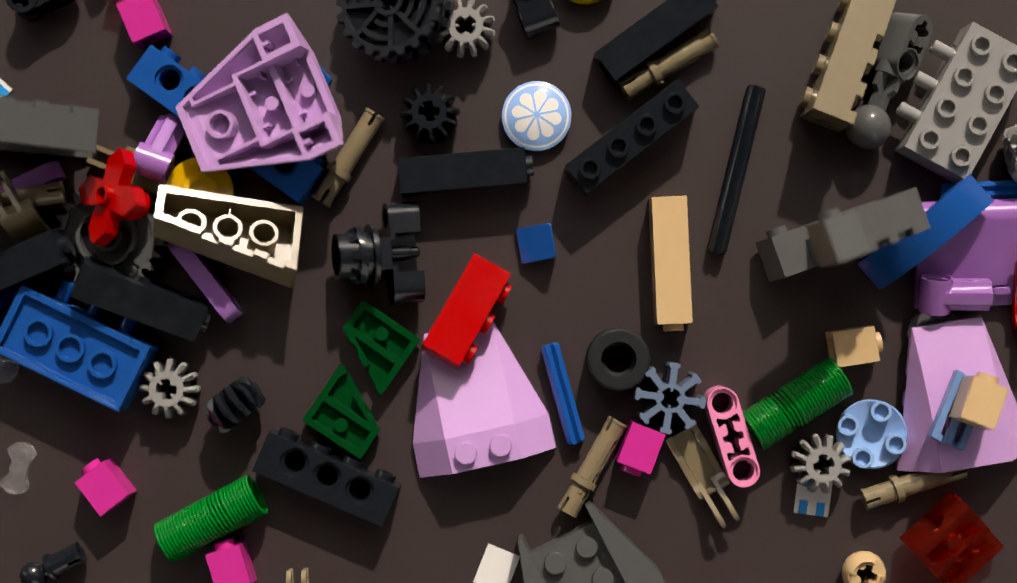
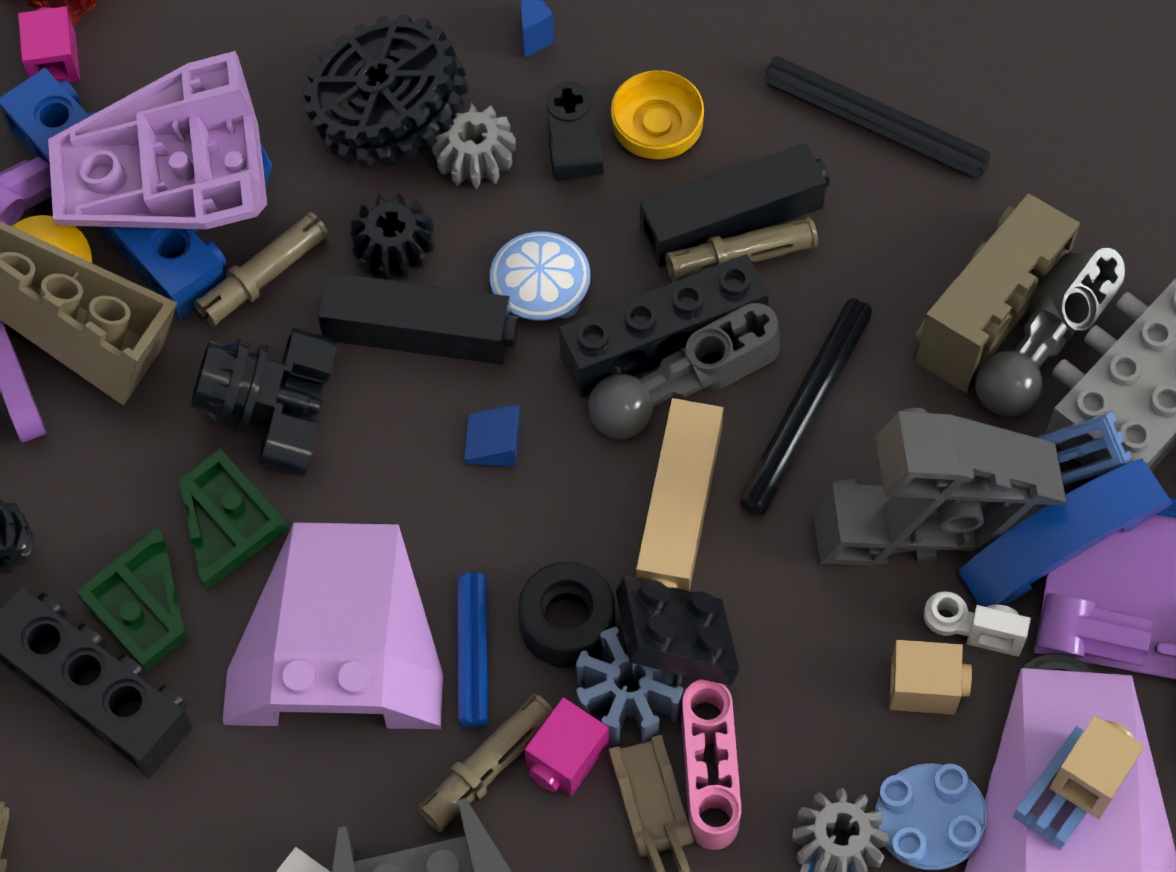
camera: 15 degrees right, 25 degrees down
(467, 312) = (361, 495): red brick -> none
(617, 199) = (624, 405): none -> dark grey beam
(692, 360) = (676, 630): none -> black plate
(799, 403) = (834, 731): green piece -> none
(888, 301) = (988, 628): none -> white plate
(918, 169) = (1110, 439): none -> medium blue tile

